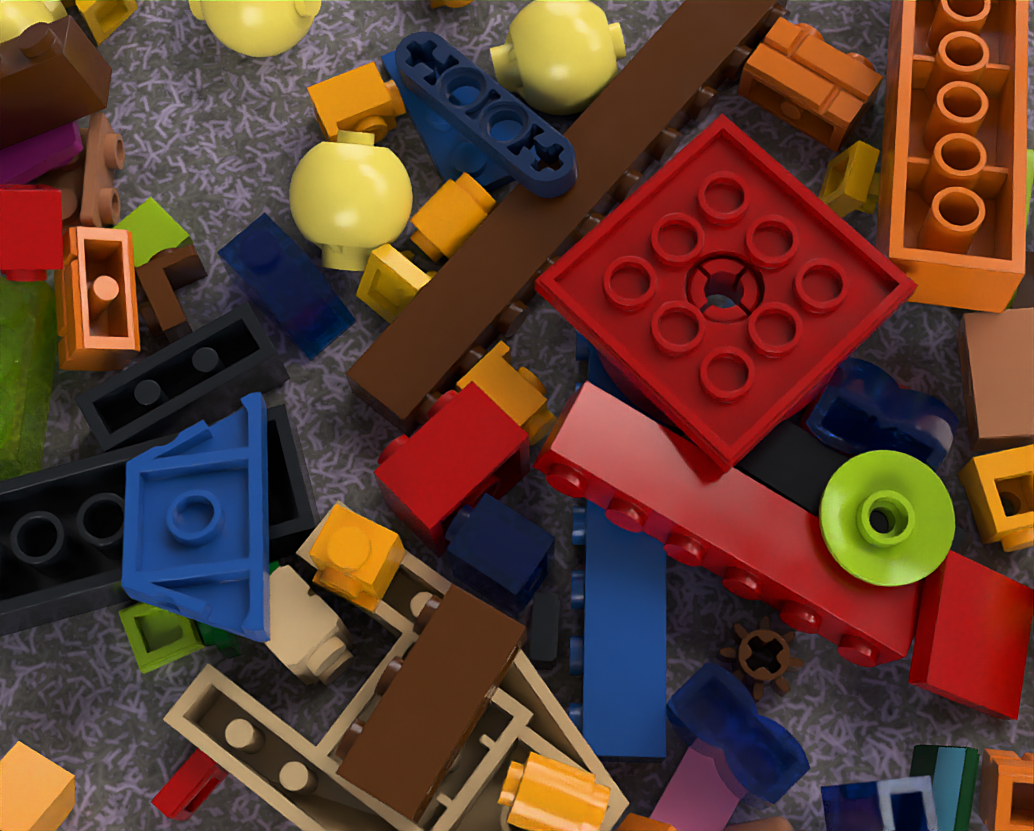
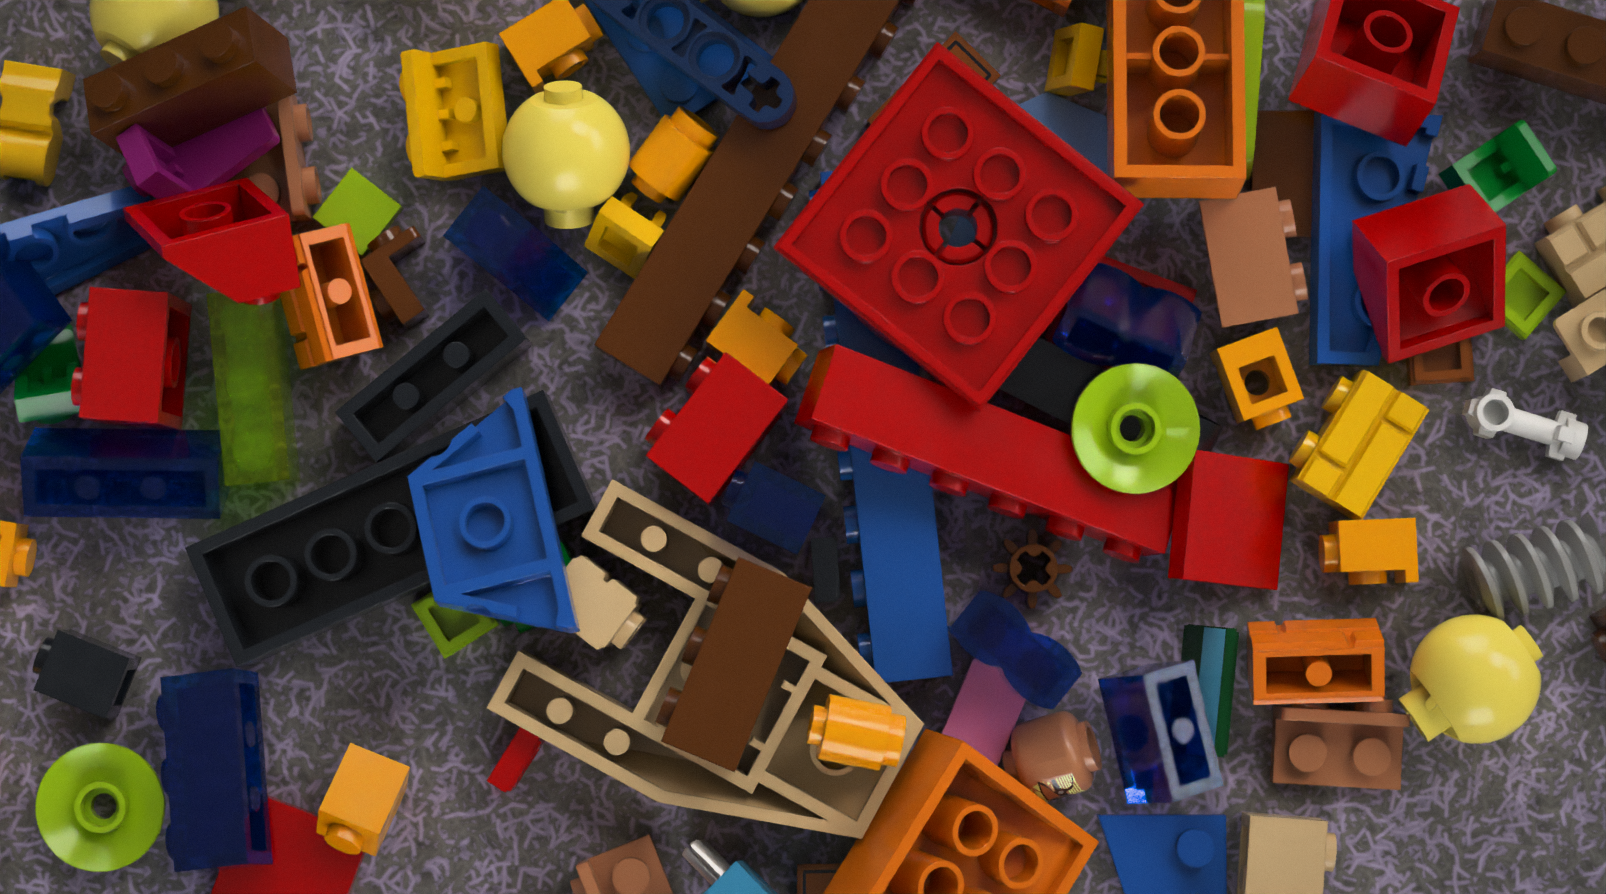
camera: 15 degrees left, 15 degrees up
(253, 157) = (454, 111): none -> yellow bracket
(356, 558) = (643, 541): light orange brick -> none

